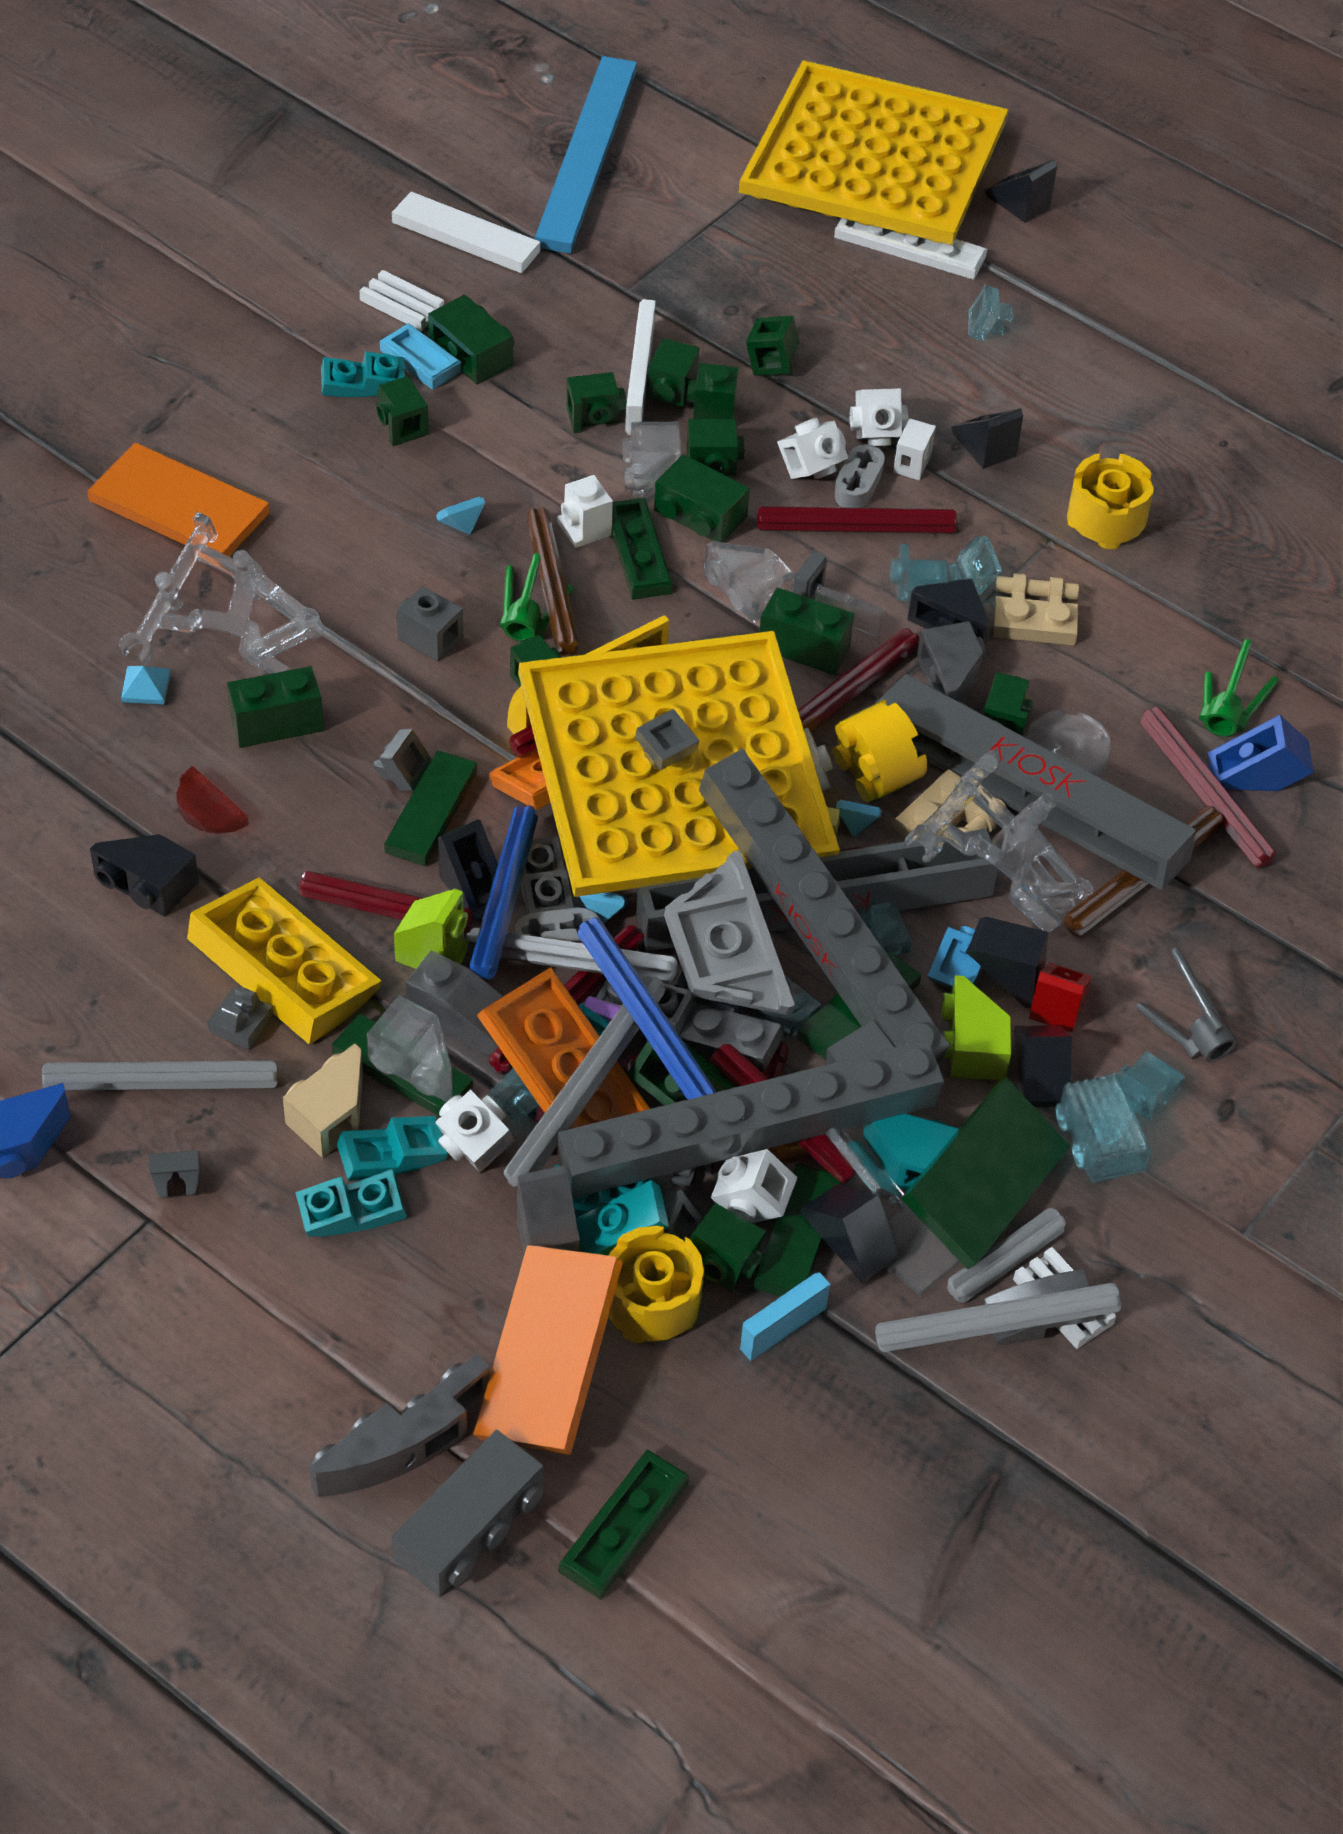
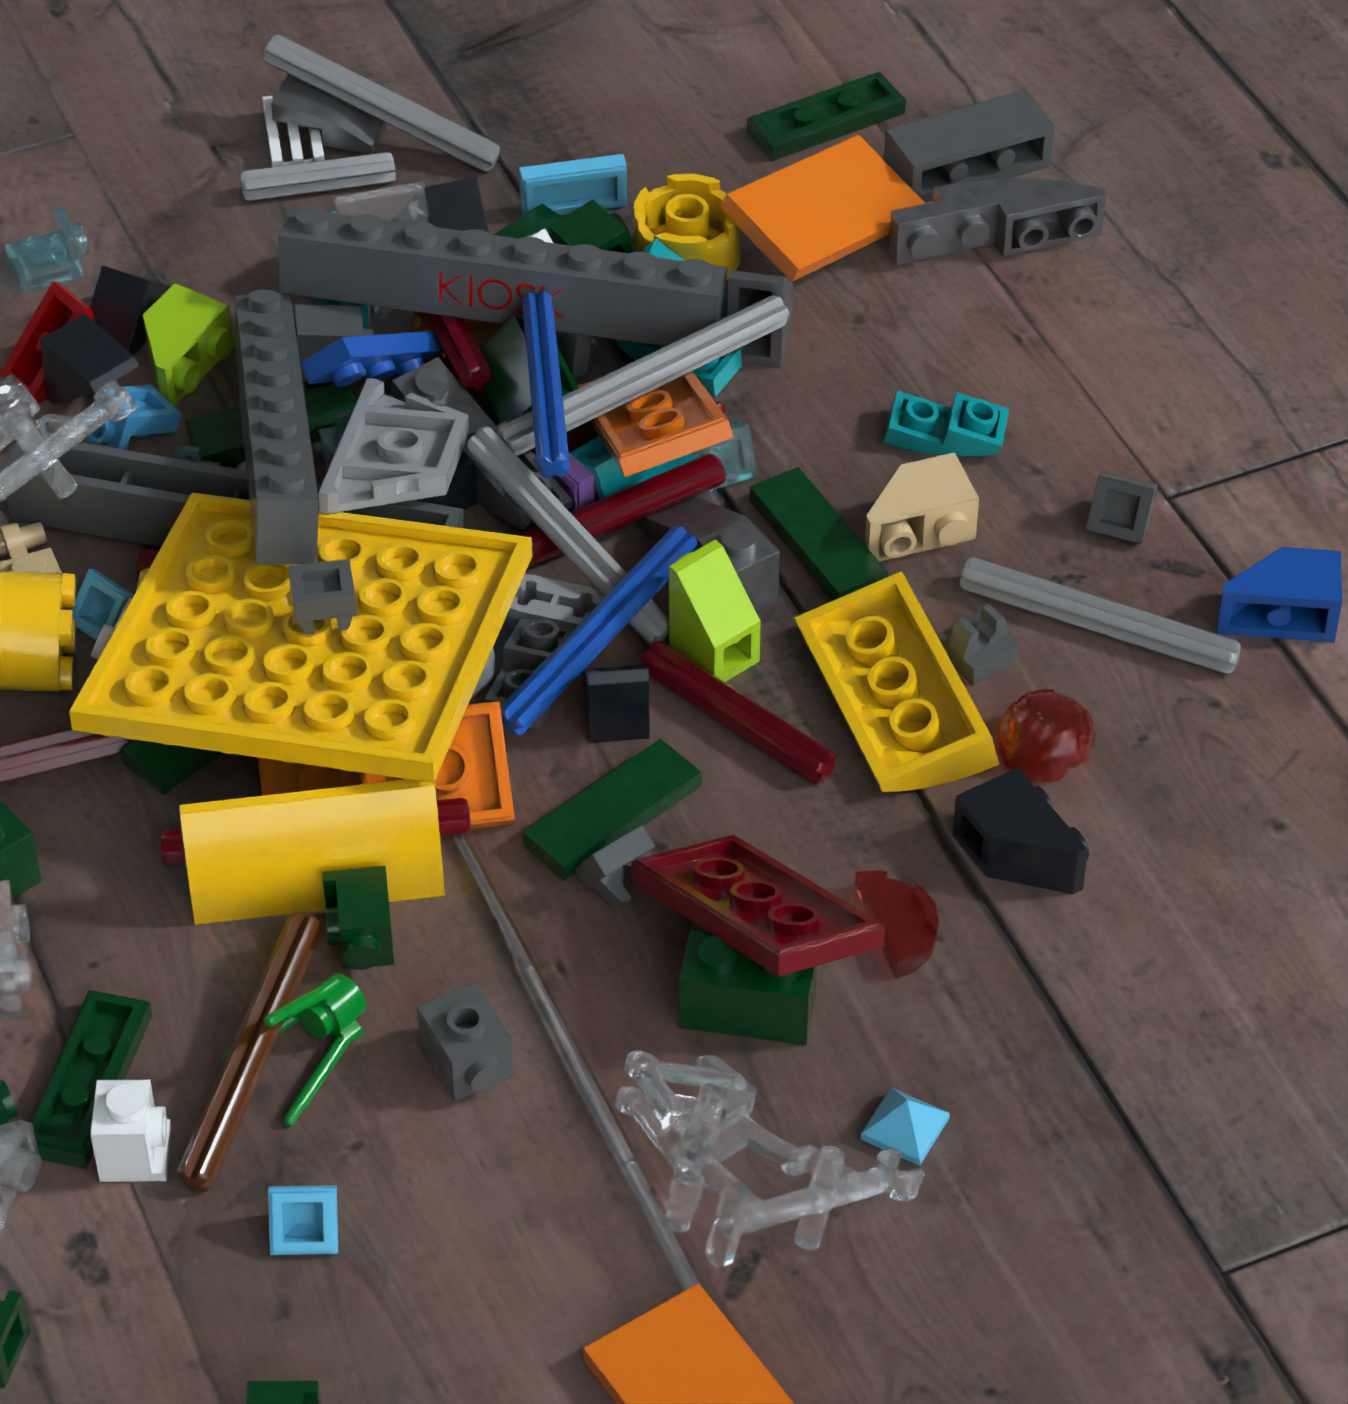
camera: 150 degrees left, 5 degrees down
(158, 961) = (1045, 735): none -> clear red hair
(290, 731) = (757, 905): none -> dark red tile
(402, 1146) = (860, 462): teal slope -> none
(413, 1047) = (807, 505): clear slope -> none
(484, 1141) = (784, 417): white brick -> none
(807, 1015) = (370, 357): none -> blue plate
(985, 1173) = (260, 219): dark green tile -> none
(1103, 1128) = (133, 223): clear light blue brick -> none

